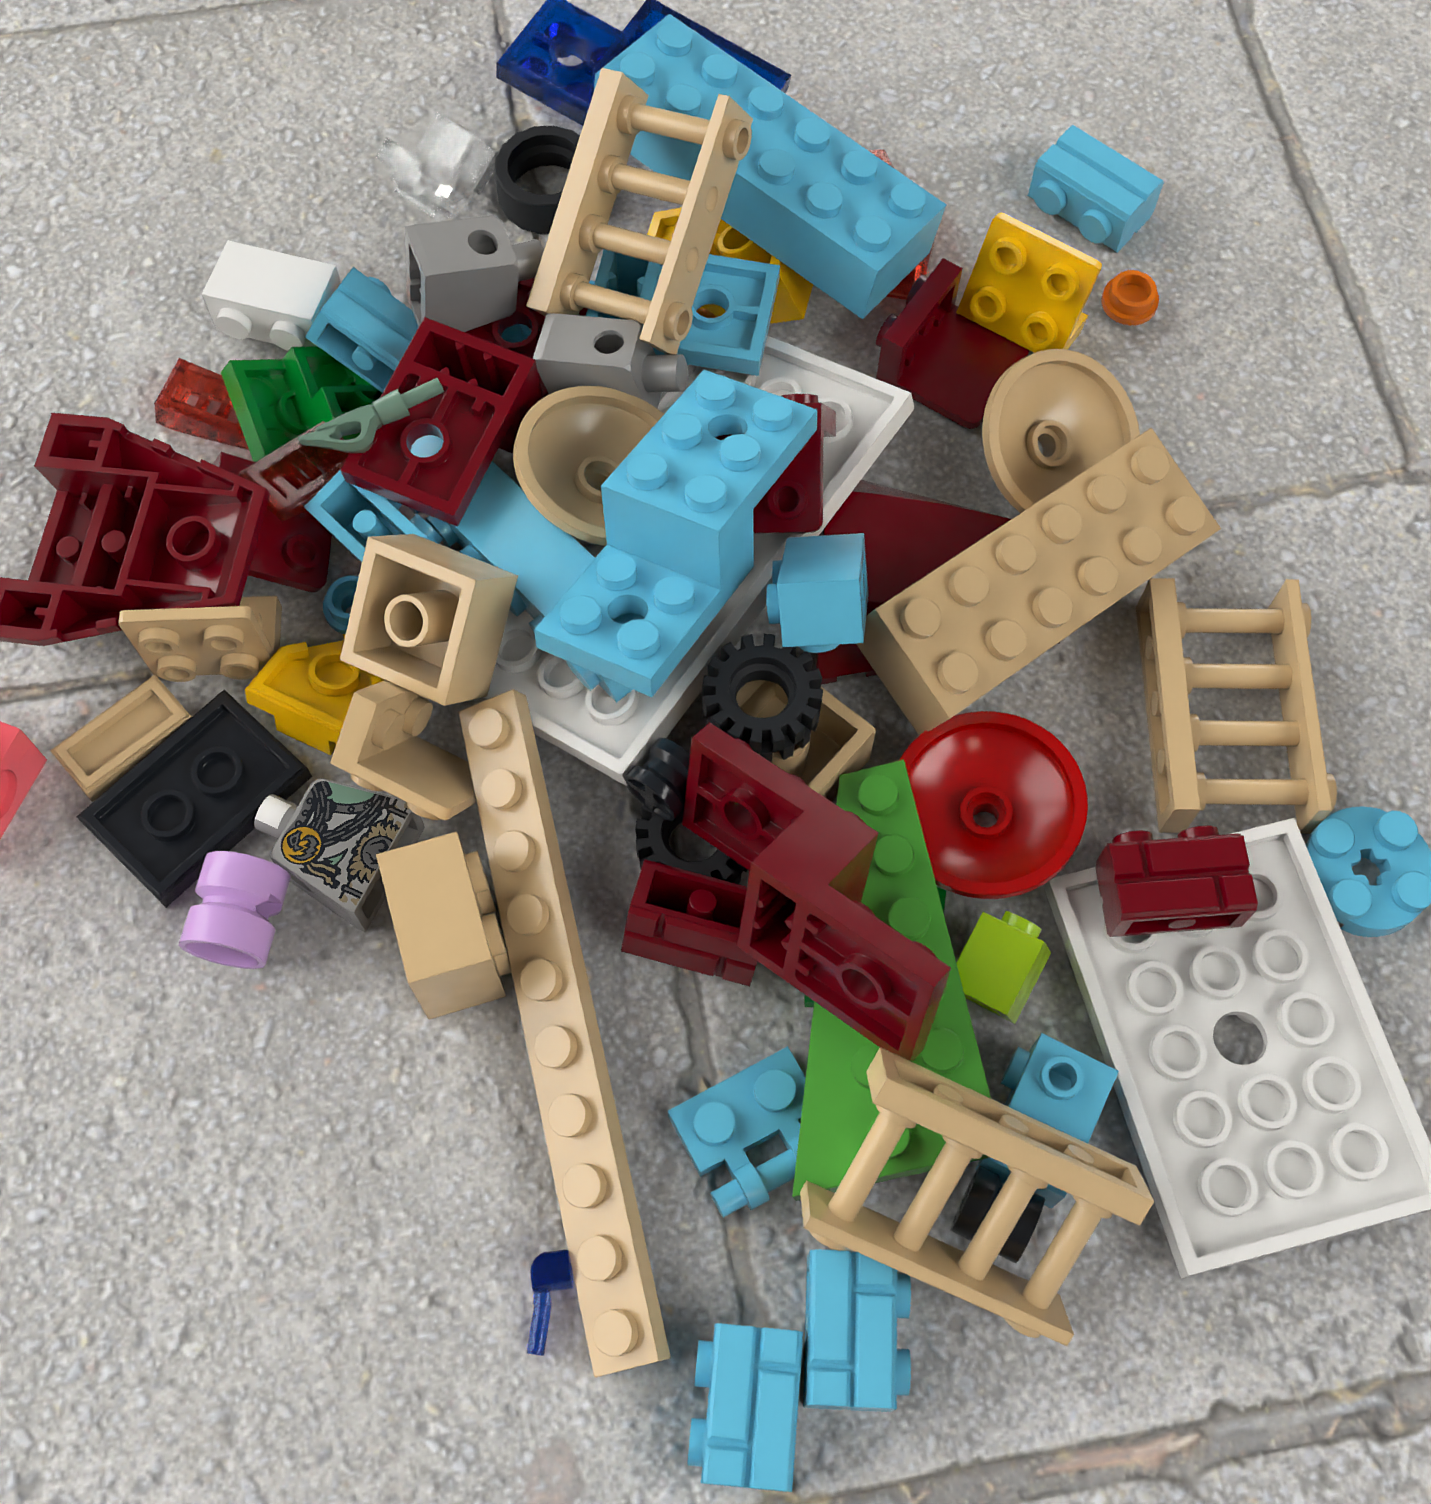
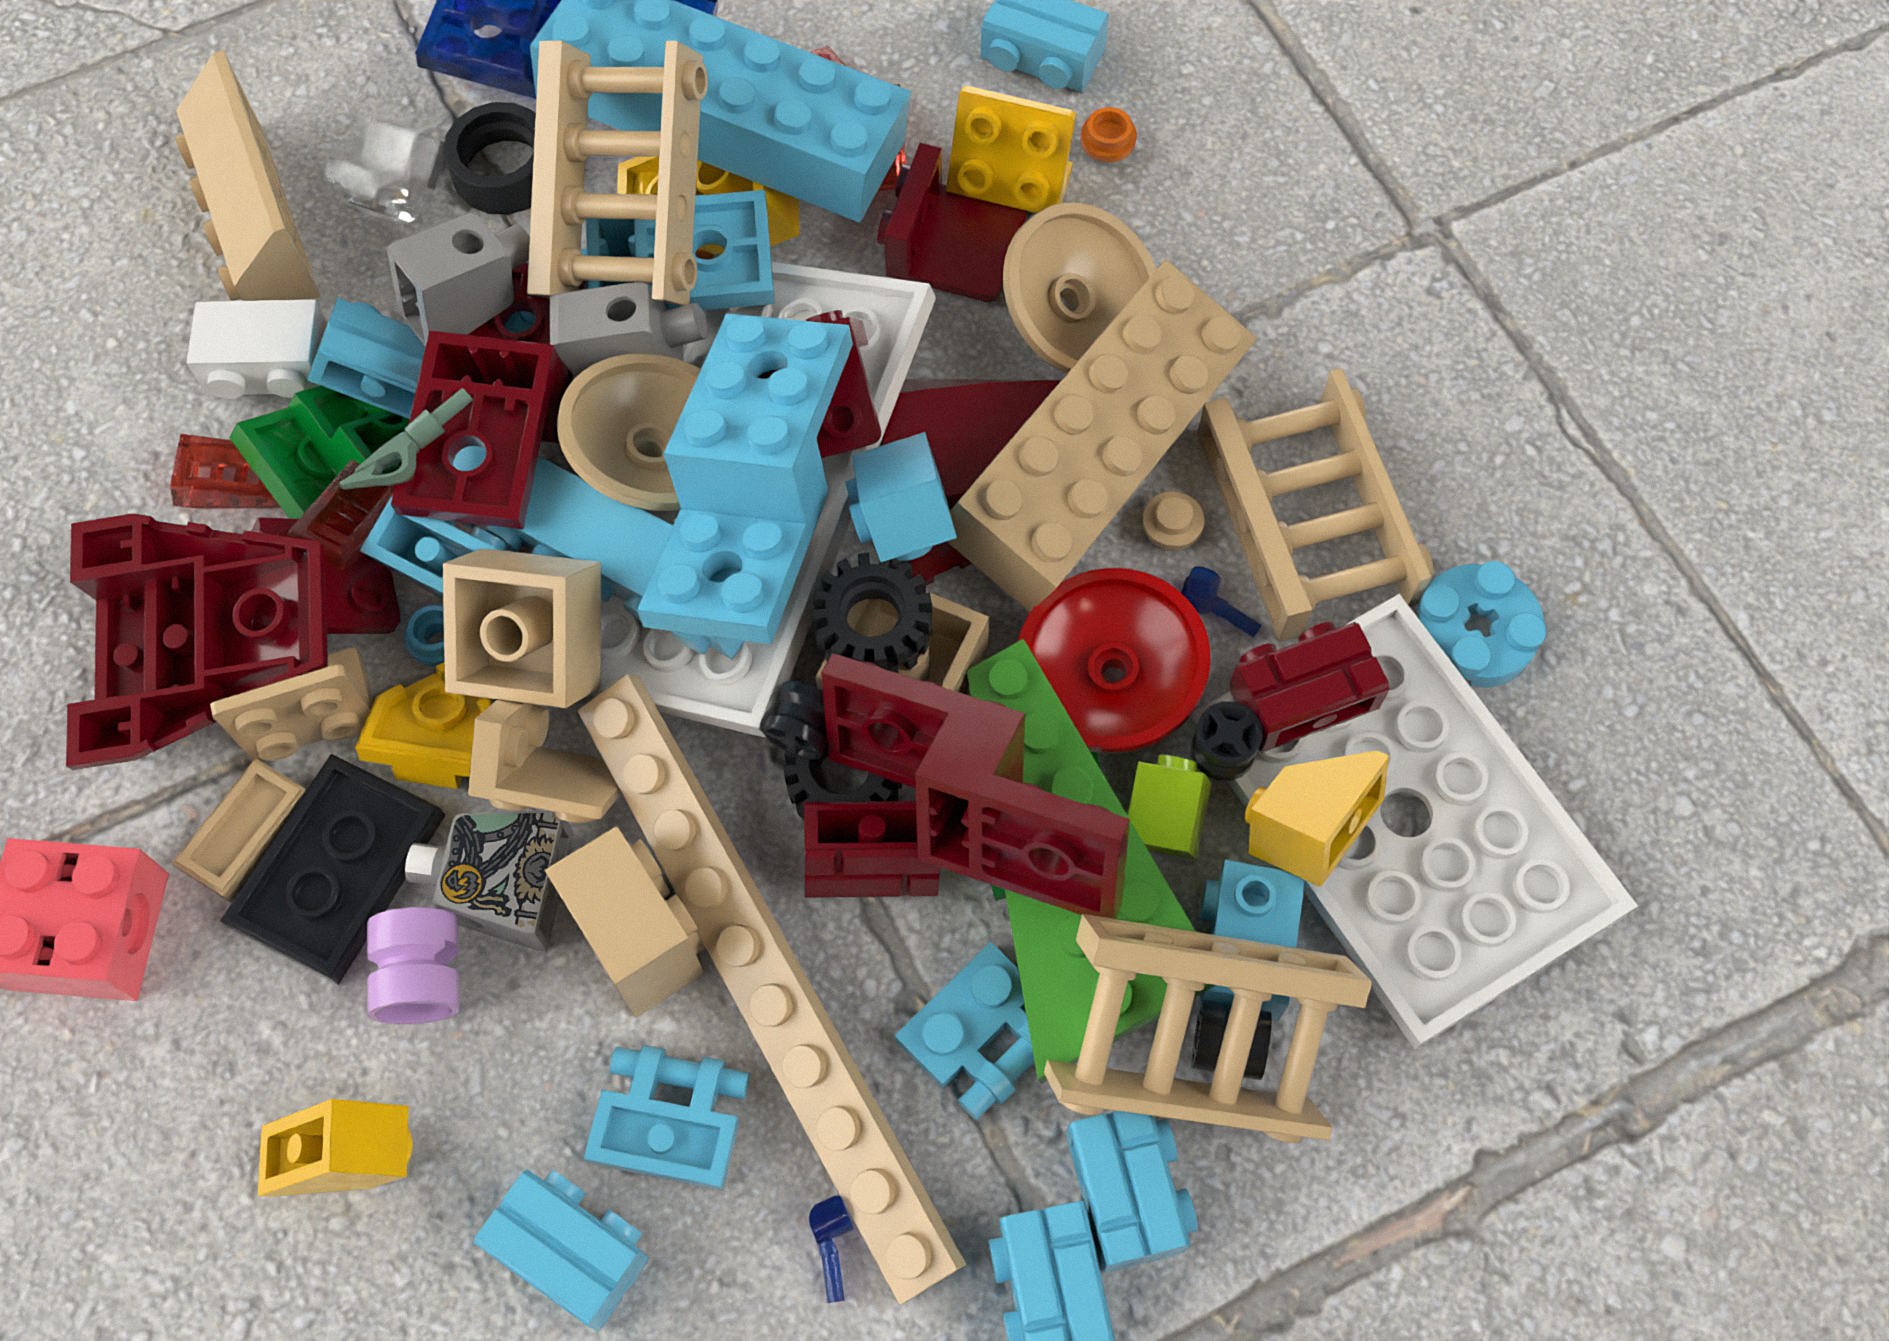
camera: 15 degrees left, 0 degrees up
(112, 1062) = (334, 1148): none -> yellow slope
(292, 1222) = (563, 1248): none -> medium azure brick
(302, 151) = (240, 190): none -> tan slope
(418, 1144) = (665, 1137): none -> medium azure plate
(1084, 902) = (1234, 728): none -> black wheel
(1087, 685) = (1173, 521): none -> tan plate
(1095, 763) = (1202, 590): none -> clear blue hand
(1146, 1013) = (1315, 812): none -> yellow slope

